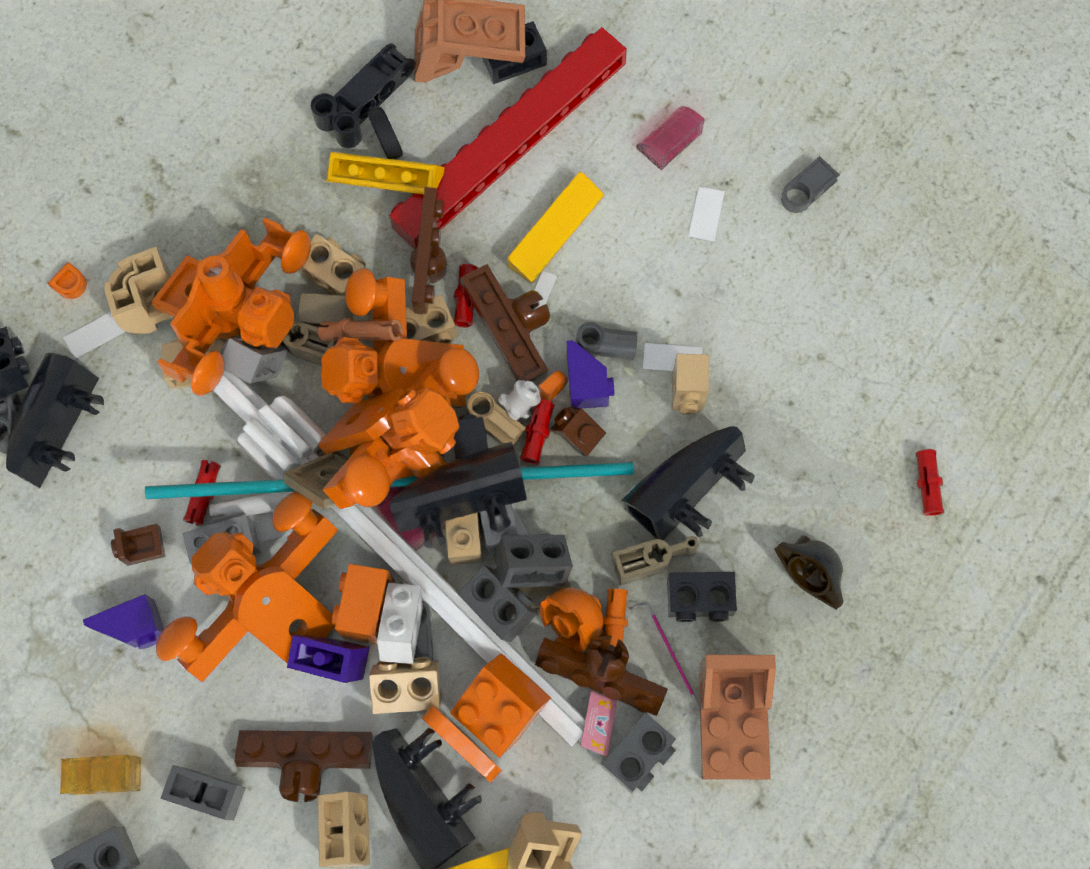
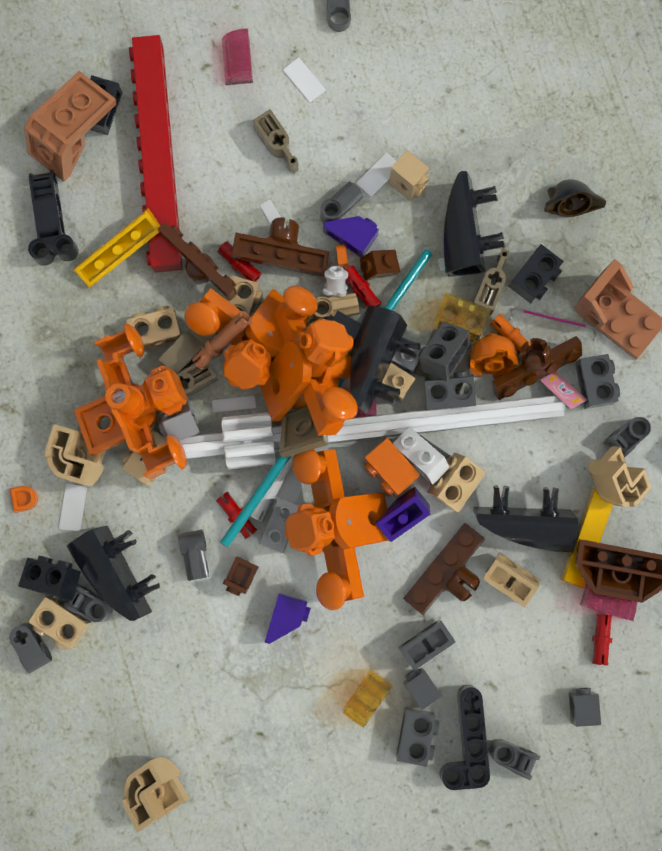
camera: 55 degrees left, 10 degrees up
(133, 475) = (193, 548): none -> dark grey piece
(153, 826) = (421, 688): none -> dark grey brick
(318, 403) = (232, 404): none -> white sticker
(385, 133) = (91, 226): black tyre -> none
(461, 744) = (515, 475): orange beam -> none
(500, 705) = (512, 436): orange brick -> none
(554, 227) = (240, 175): yellow slope -> none
(596, 552) = (463, 310): none -> clear yellow brick
(602, 836) = (626, 438): none -> dark grey piece
(618, 227) = (272, 131): none -> dark tan piece
(929, 482) = (562, 86): red pin -> none

